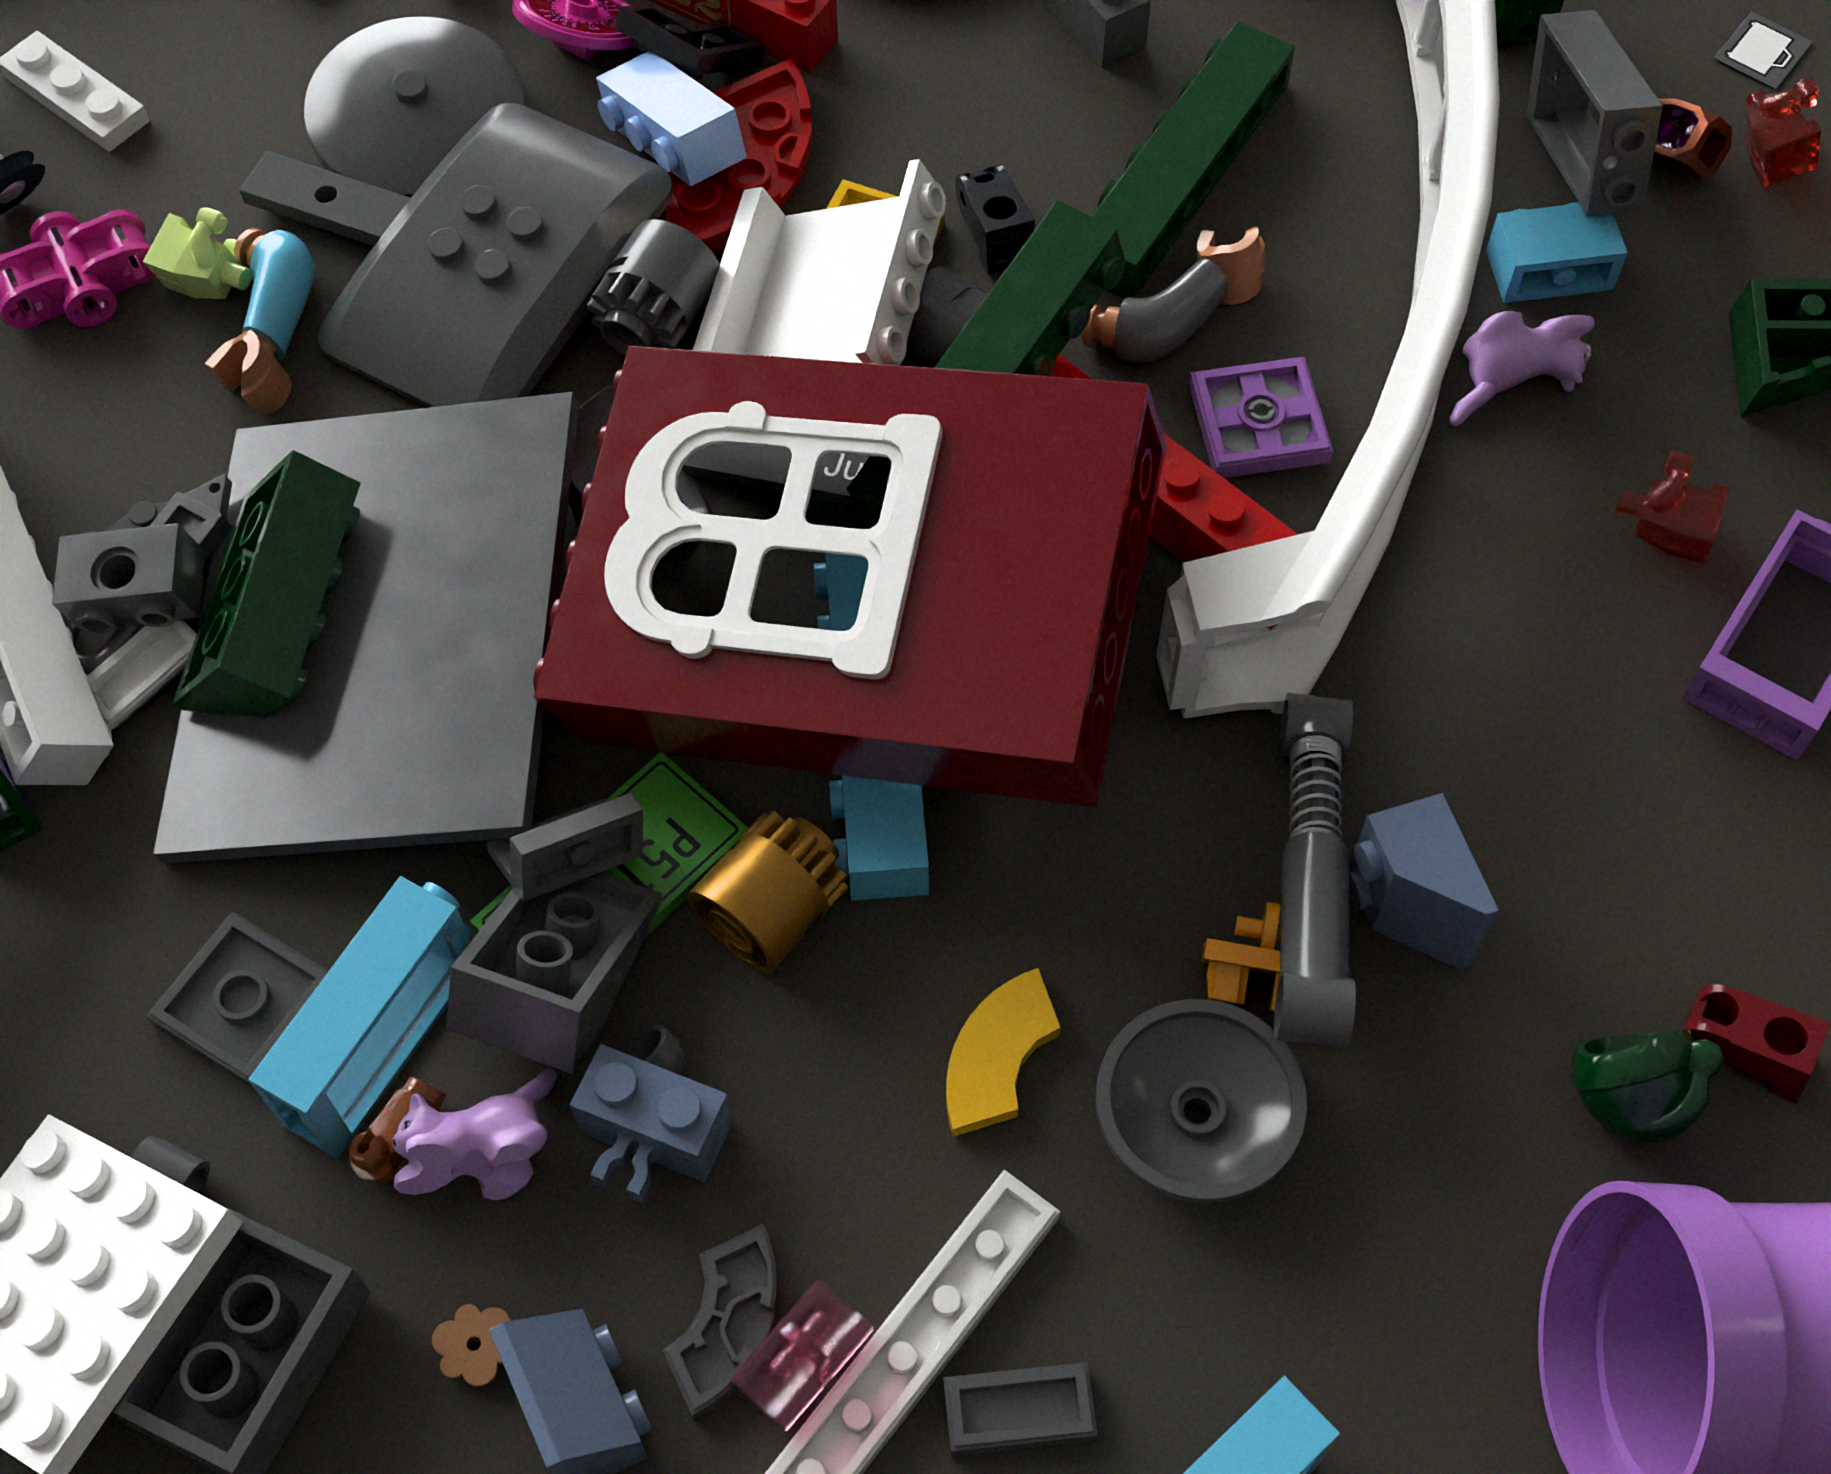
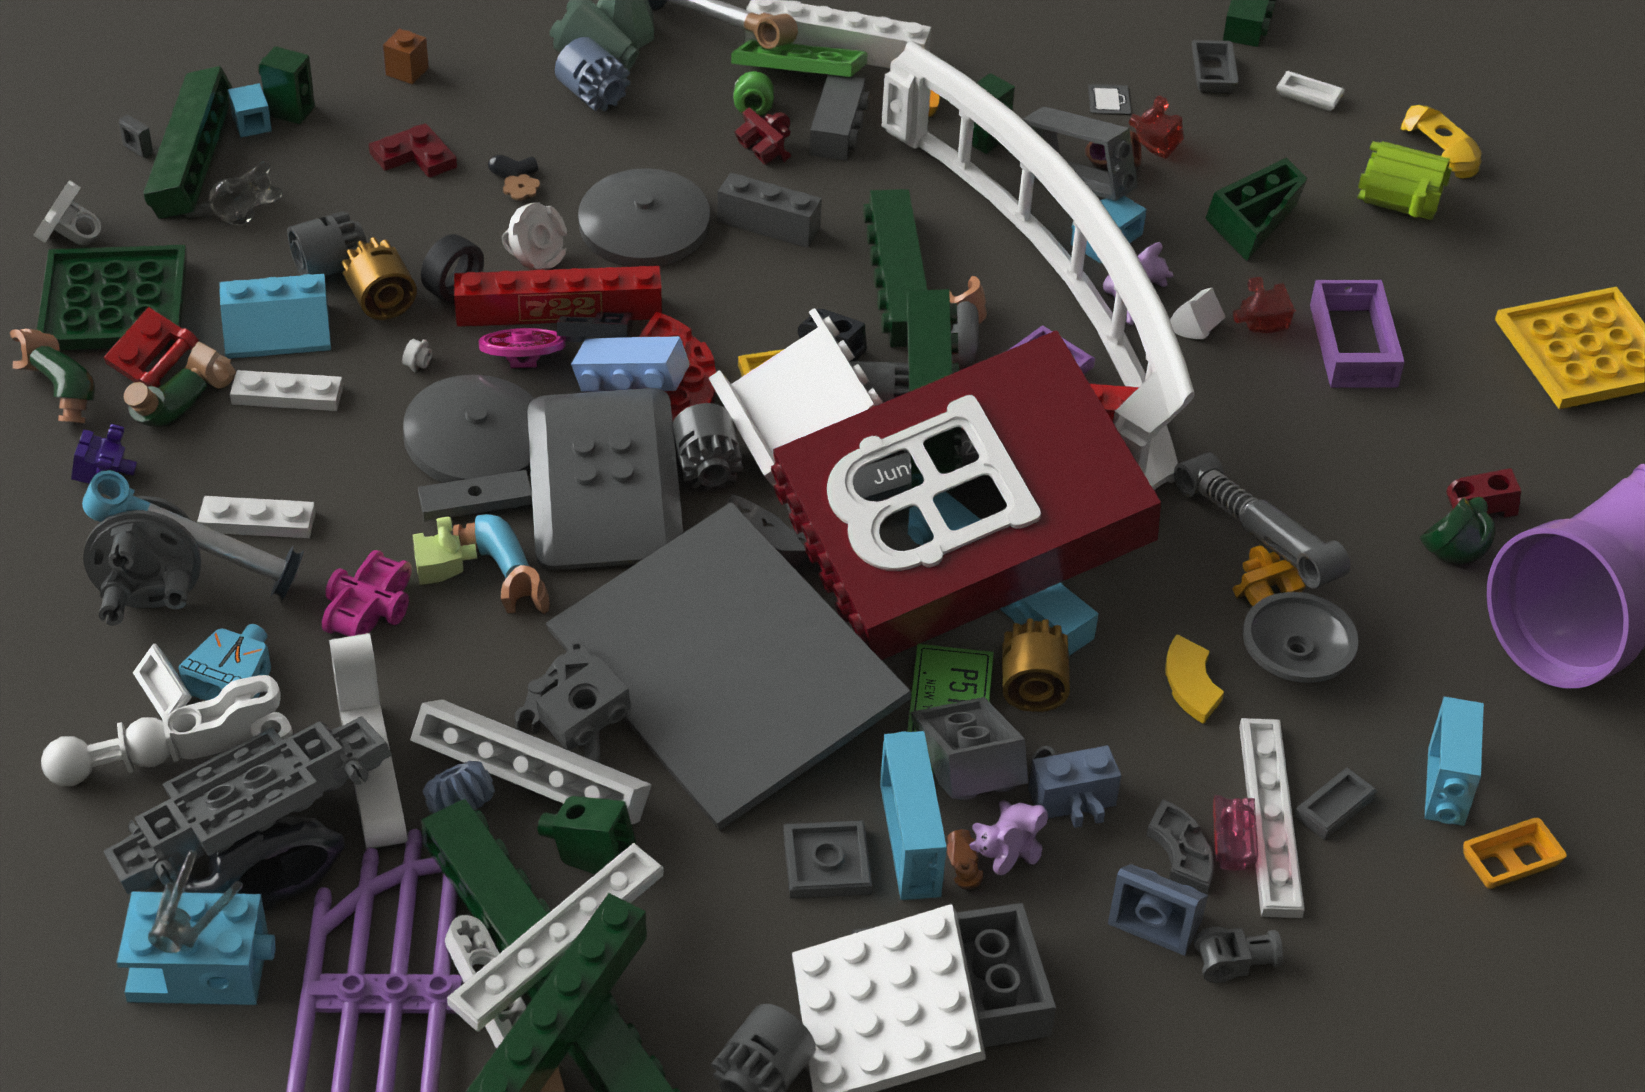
camera: 40 degrees left, 15 degrees down
(140, 670) = (620, 744): white tile -> none
(270, 591) = (665, 669): dark green slope -> none
(455, 1338) = (1086, 921): medium nougat plant -> none
(571, 846) = (931, 693): dark grey panel -> none
(1421, 882) = (1315, 498): sand blue slope -> none
(1564, 466) = (1198, 315): none -> white tile

